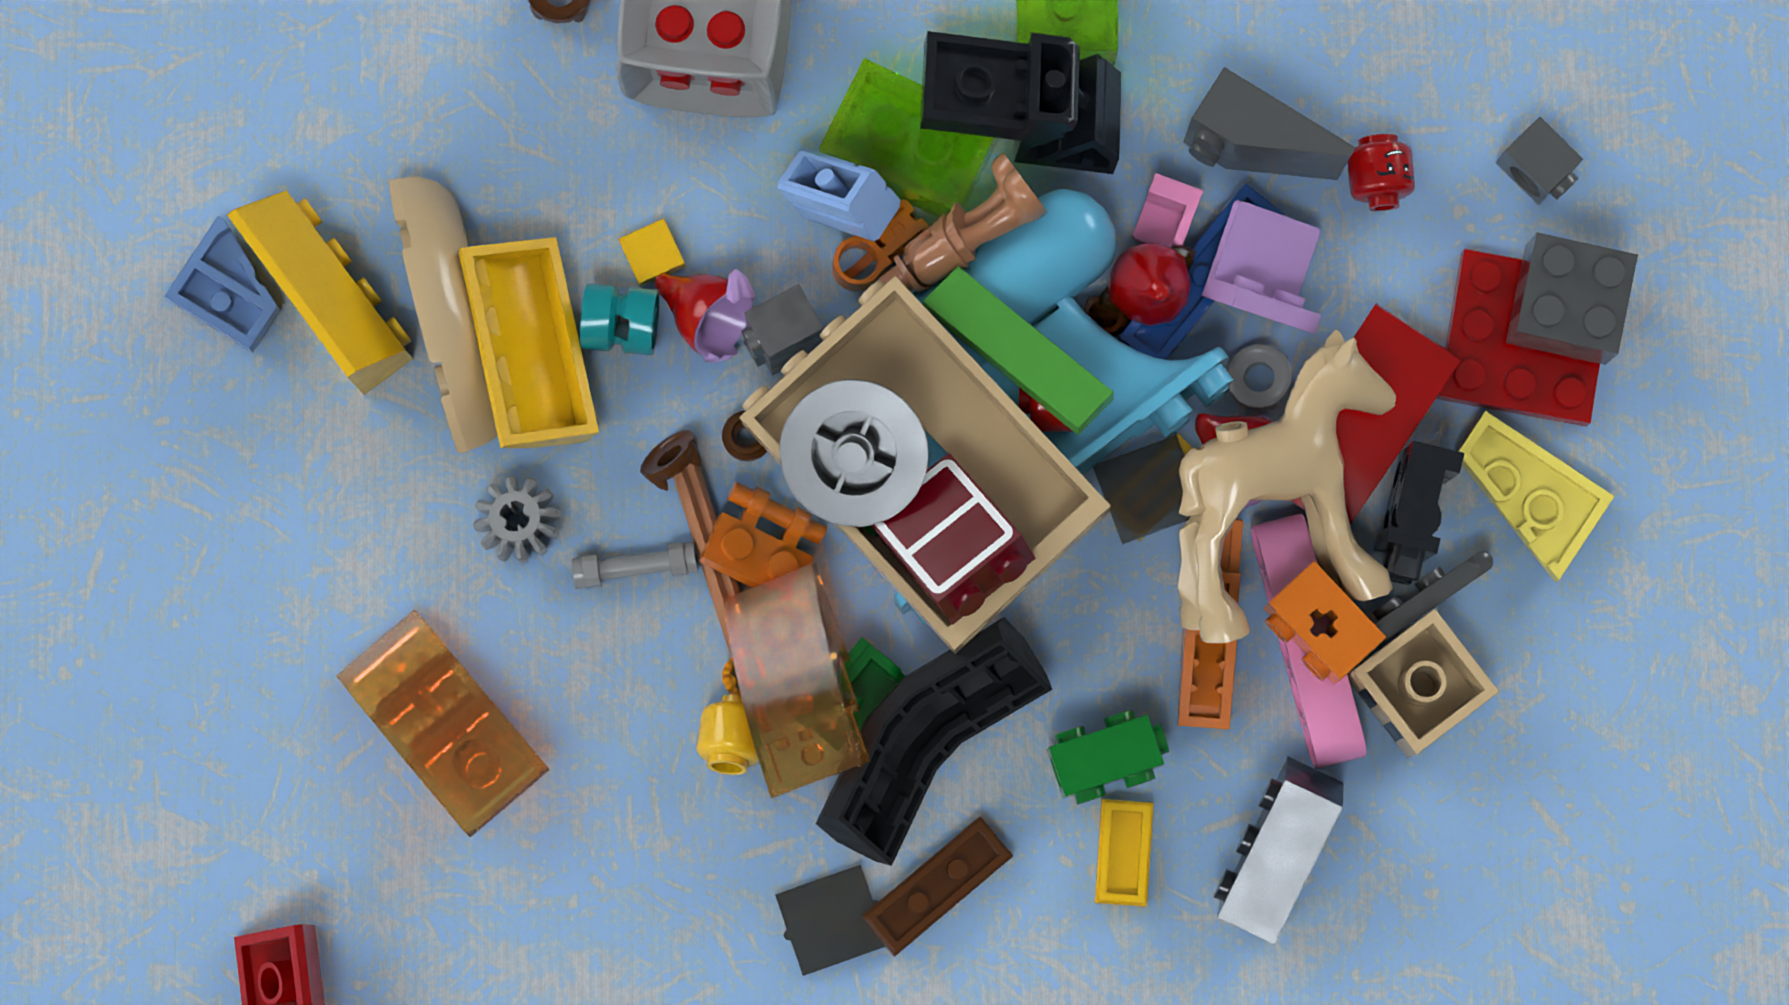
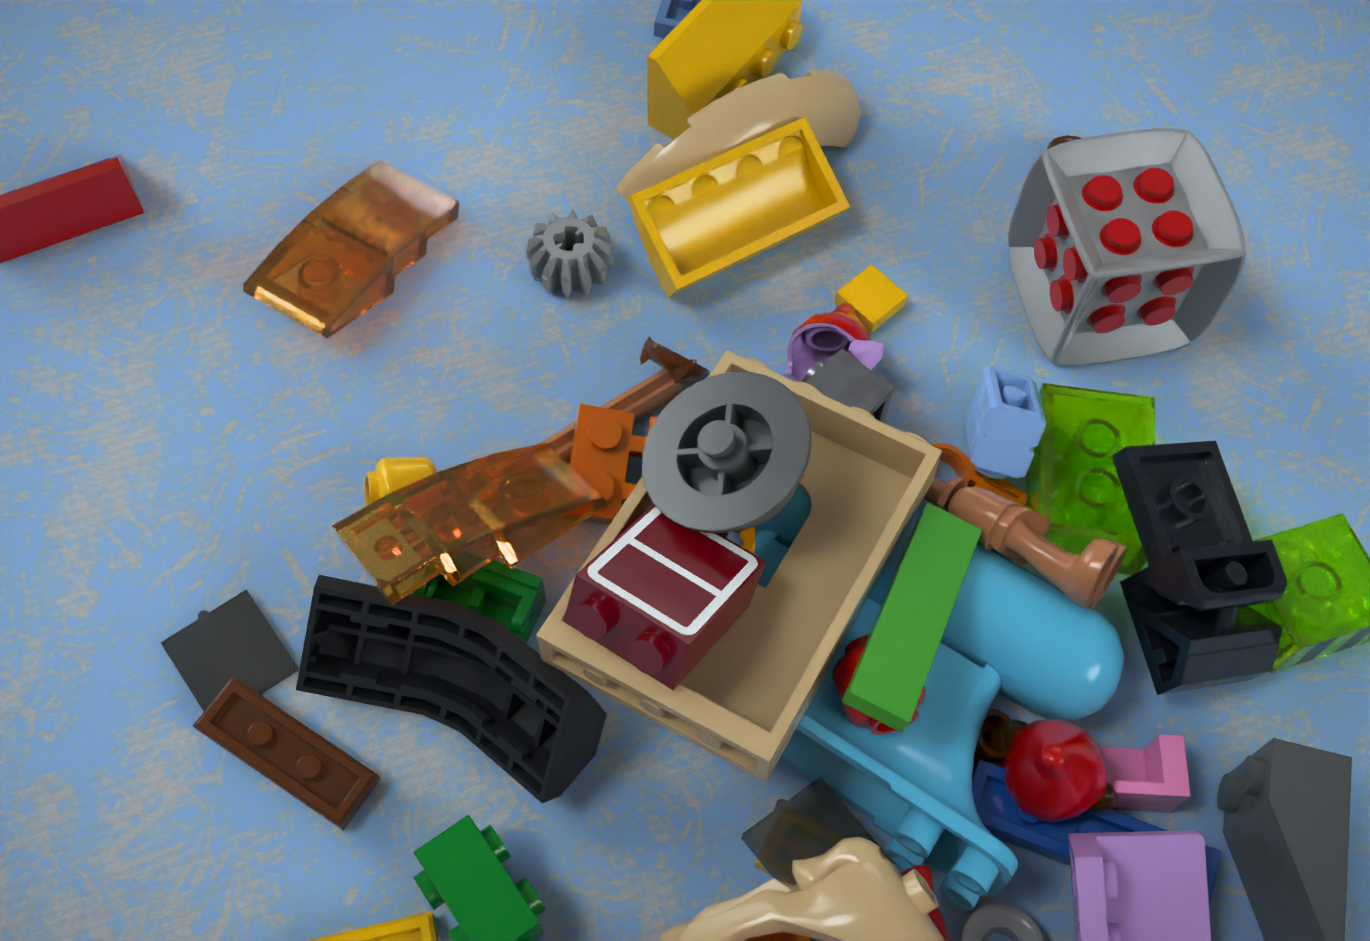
camera: 70 degrees right, 20 degrees down
(590, 571) = (542, 334): light grey bar -> none
(601, 319) = (793, 278): teal wheel -> none

